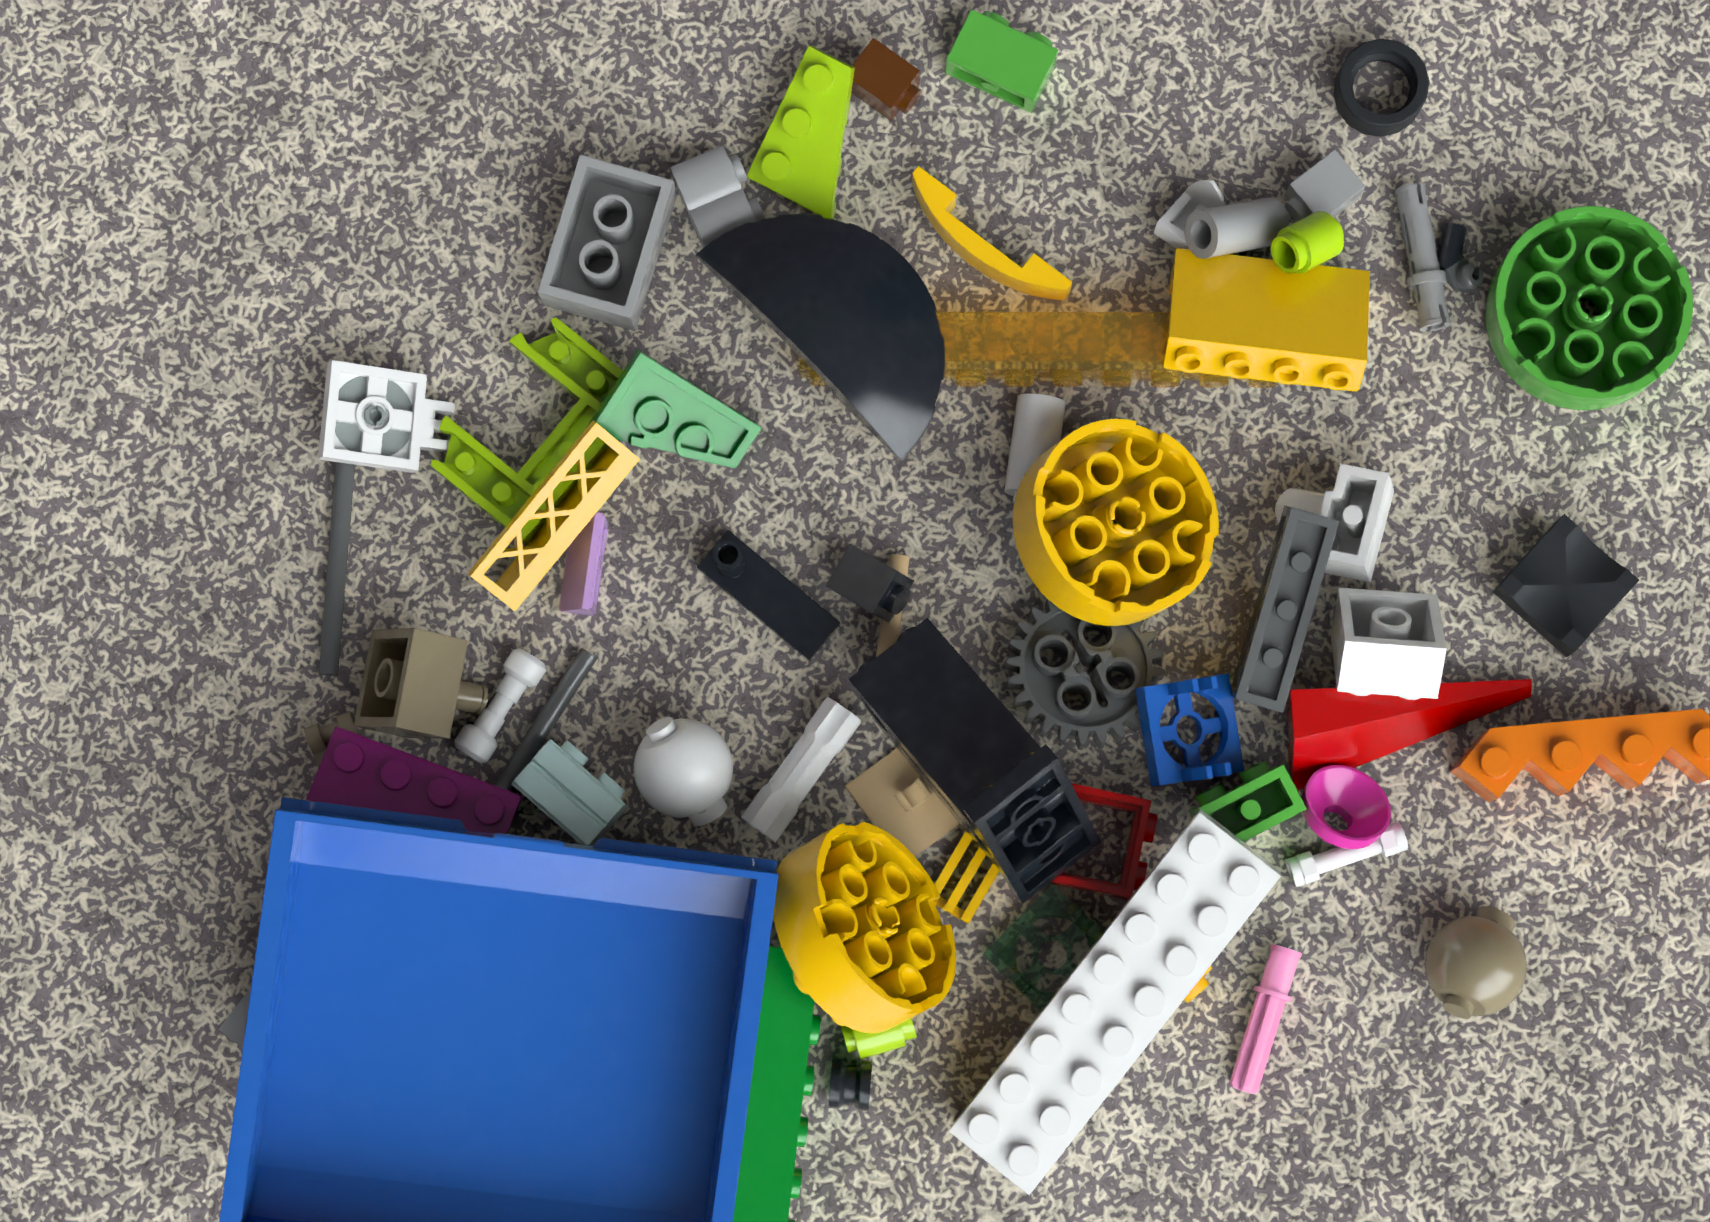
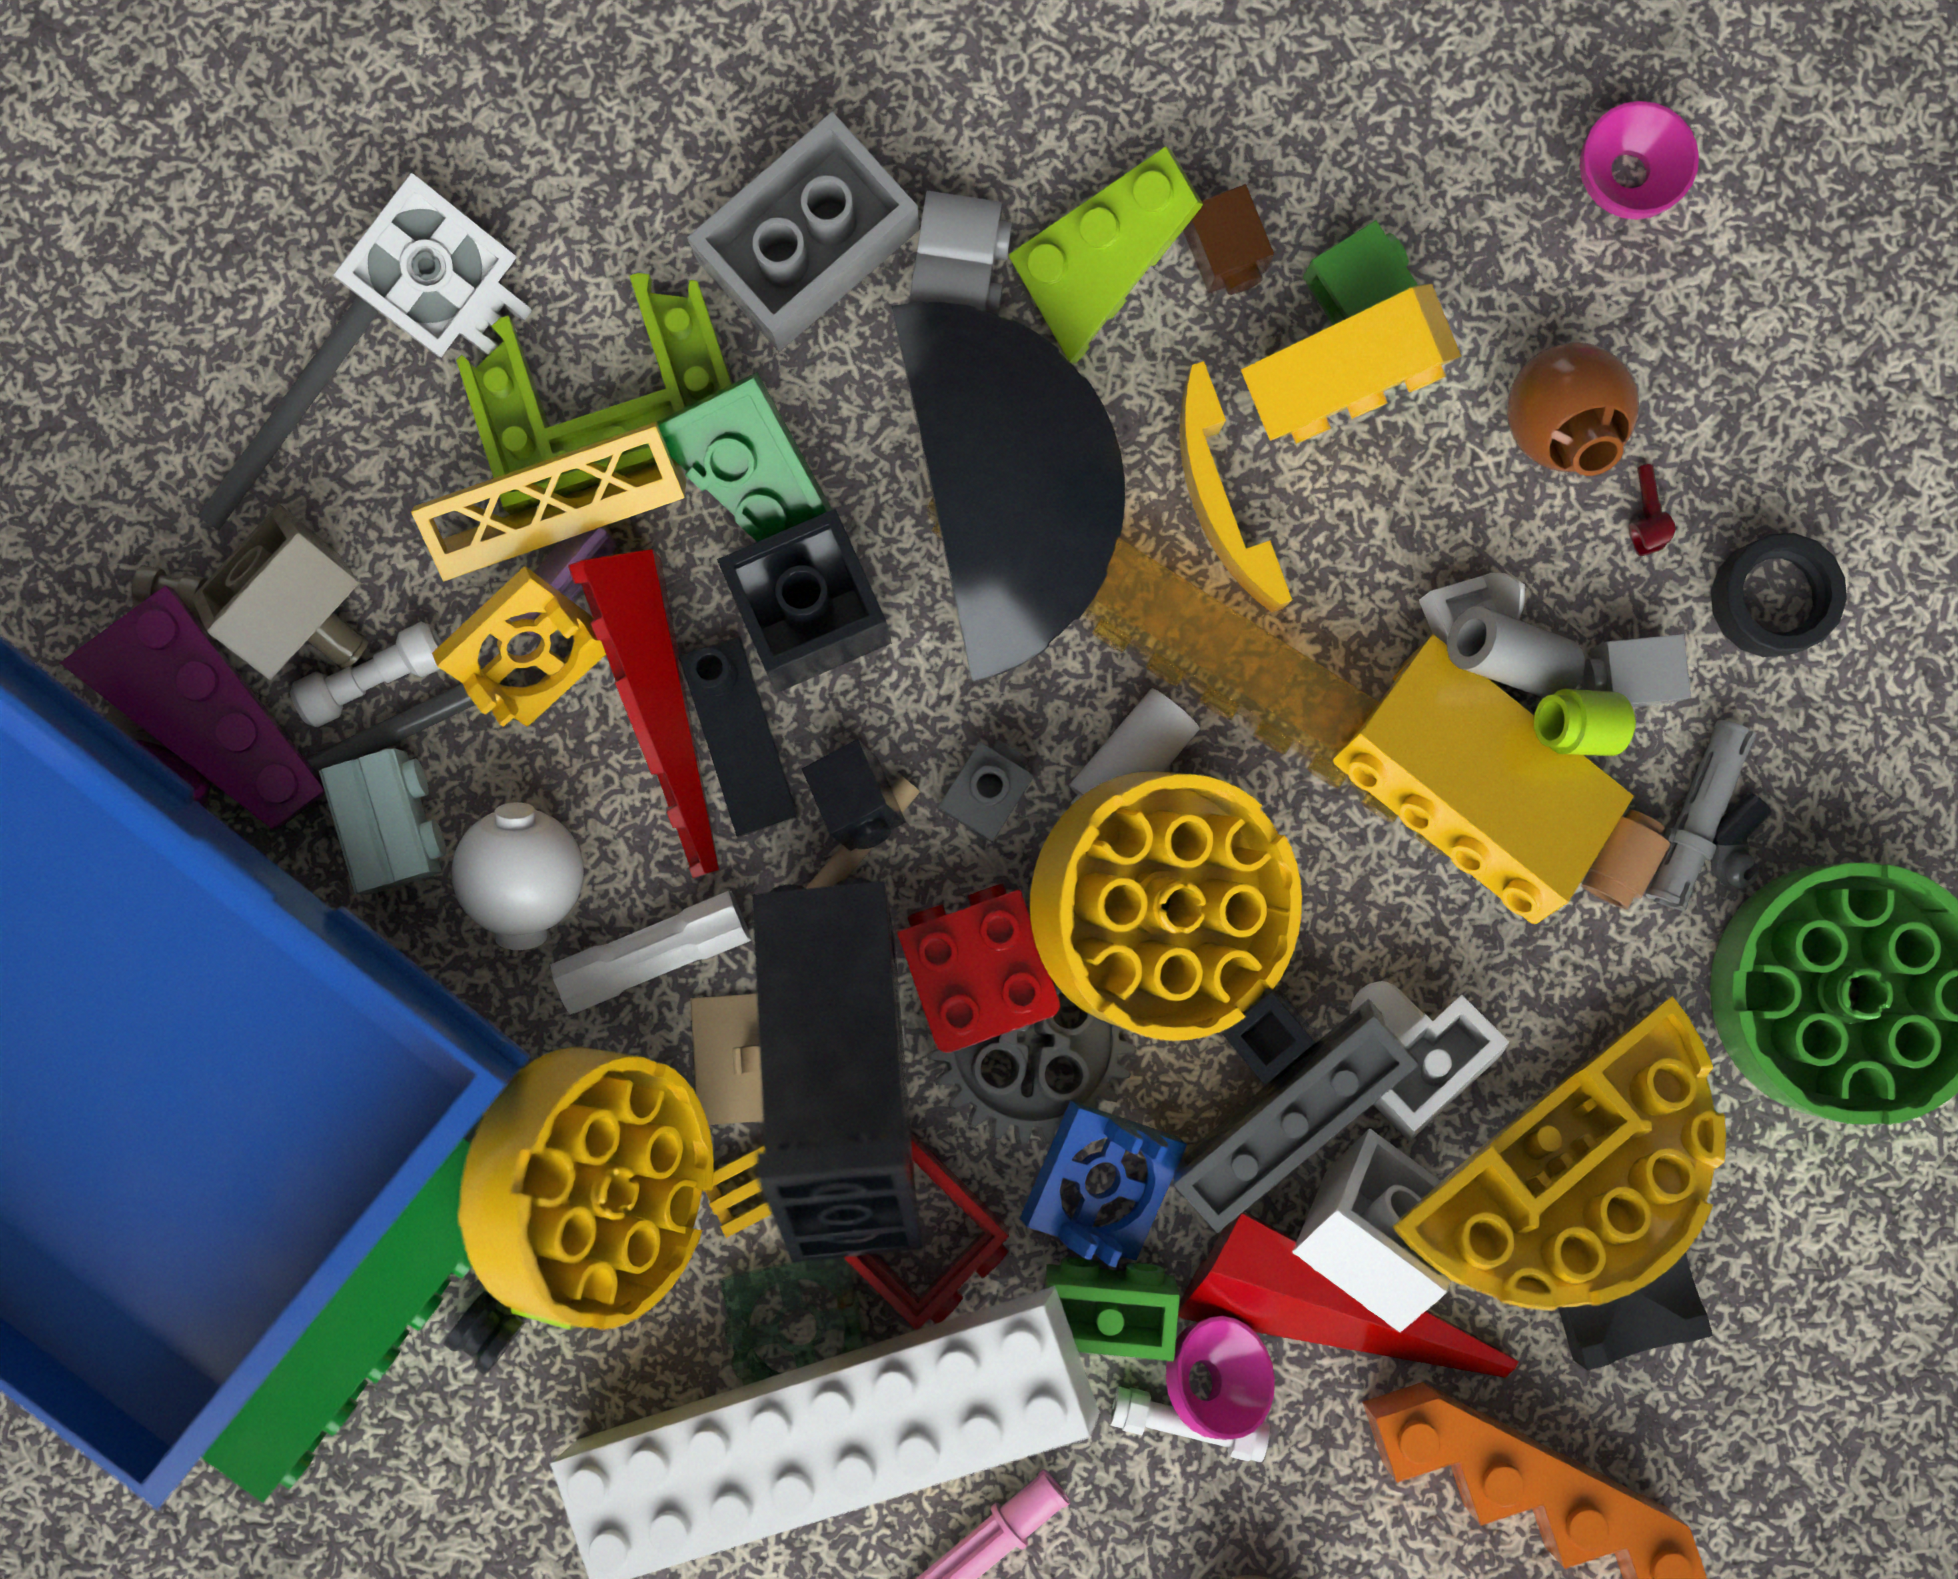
camera: 25 degrees right, 5 degrees up
(576, 585) = (520, 595): none -> yellow piece
(659, 564) = (639, 639): none -> red wedge
(759, 478) = (805, 600): none -> black slope
(953, 527) = (987, 789): none -> dark grey brick
(1015, 110) = (1352, 365): none -> yellow brick
(1022, 641) = (978, 969): none -> red bracket
(1173, 50) = (1573, 408): none -> dark orange brick
(1237, 567) = (1271, 1036): none -> black brick
(1277, 92) = (1658, 527): none -> dark red hand
(1392, 315) = (1627, 860): none -> medium nougat brick
(1497, 530) = (1589, 1181): none -> yellow brick

